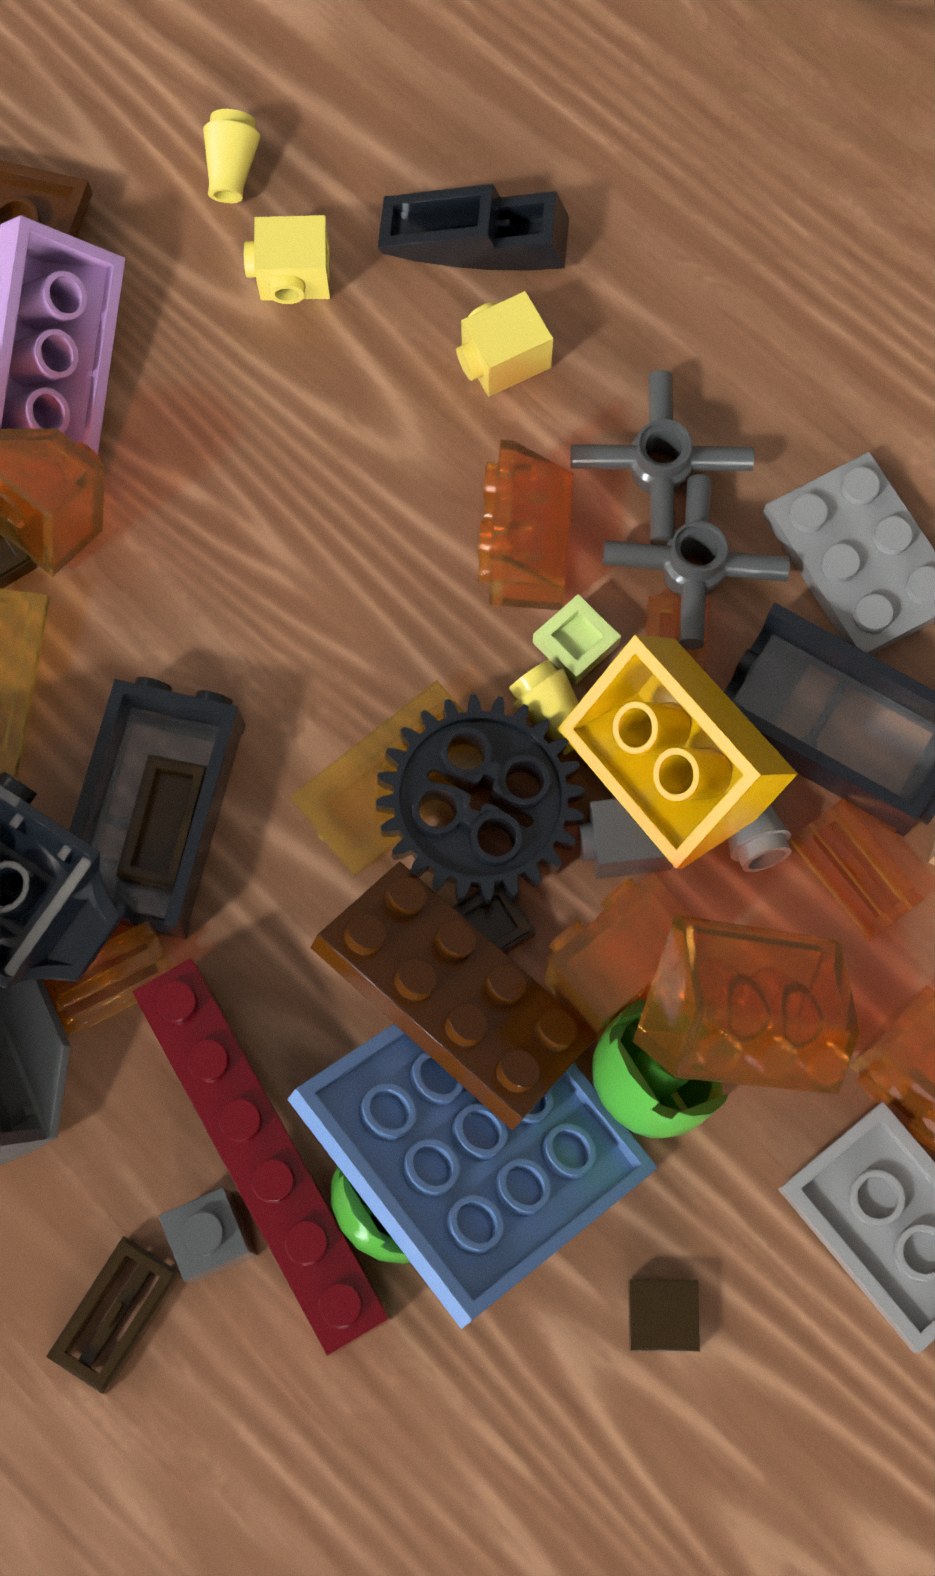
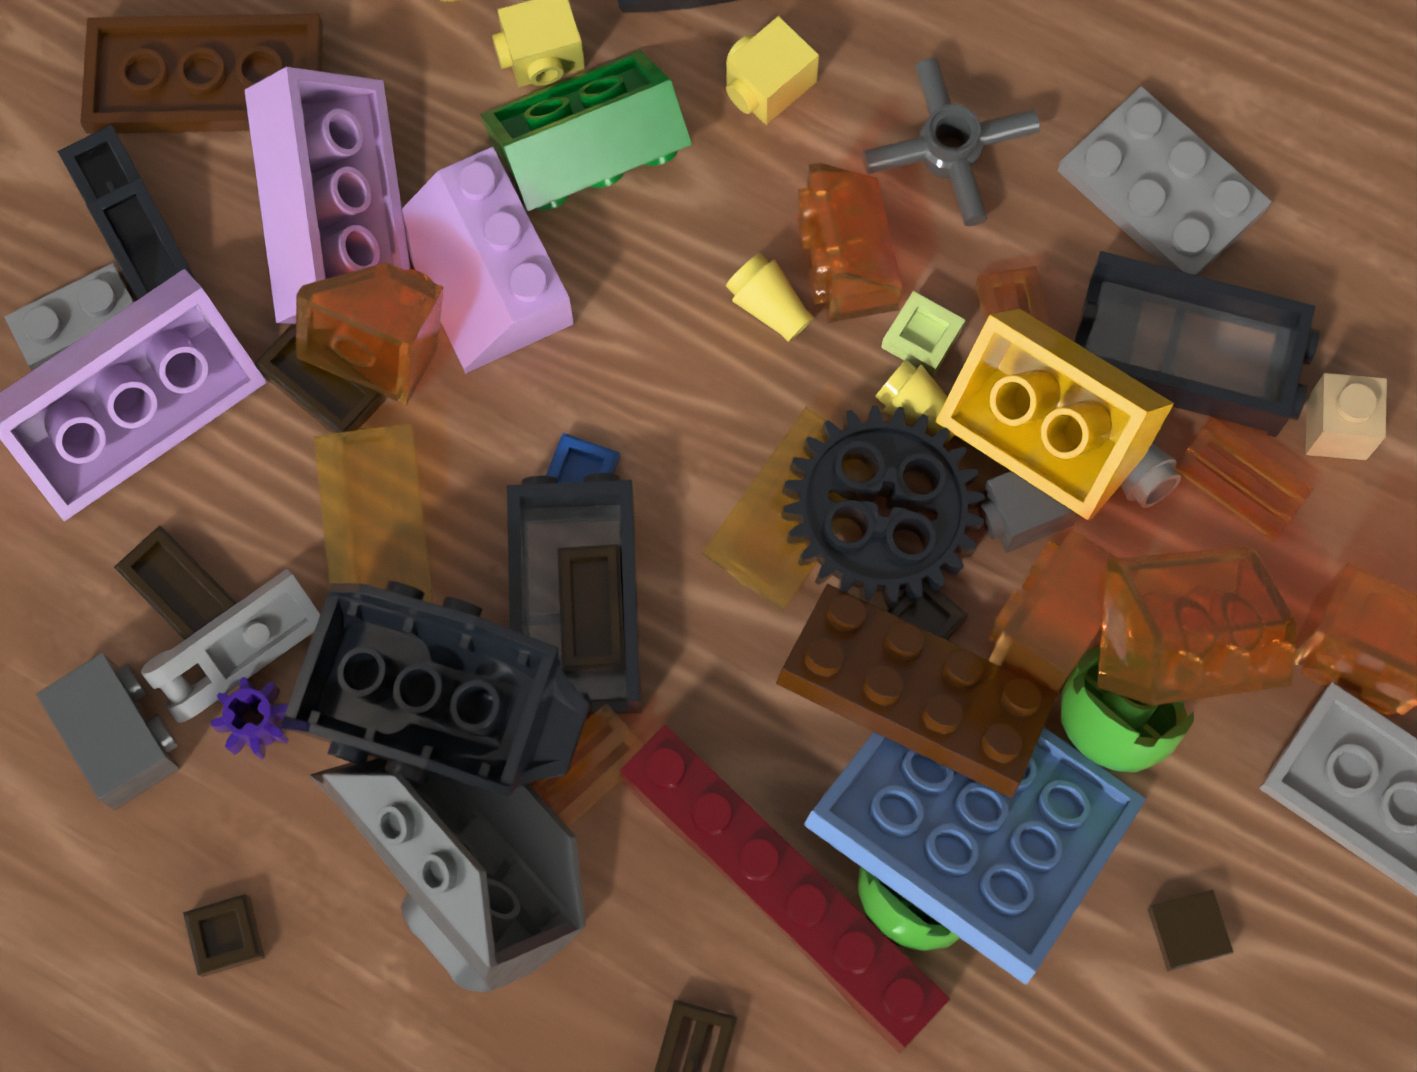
camera: 15 degrees left, 0 degrees up
(168, 457) = (482, 248): none -> lavender slope
(203, 672) = (580, 458): none -> blue tile
(208, 1235) = (756, 974): dark grey brick -> none
(307, 358) = (587, 130): none -> slope
(435, 562) = (768, 295): none -> light yellow cone
(692, 581) = (1010, 250): dark grey bar -> none

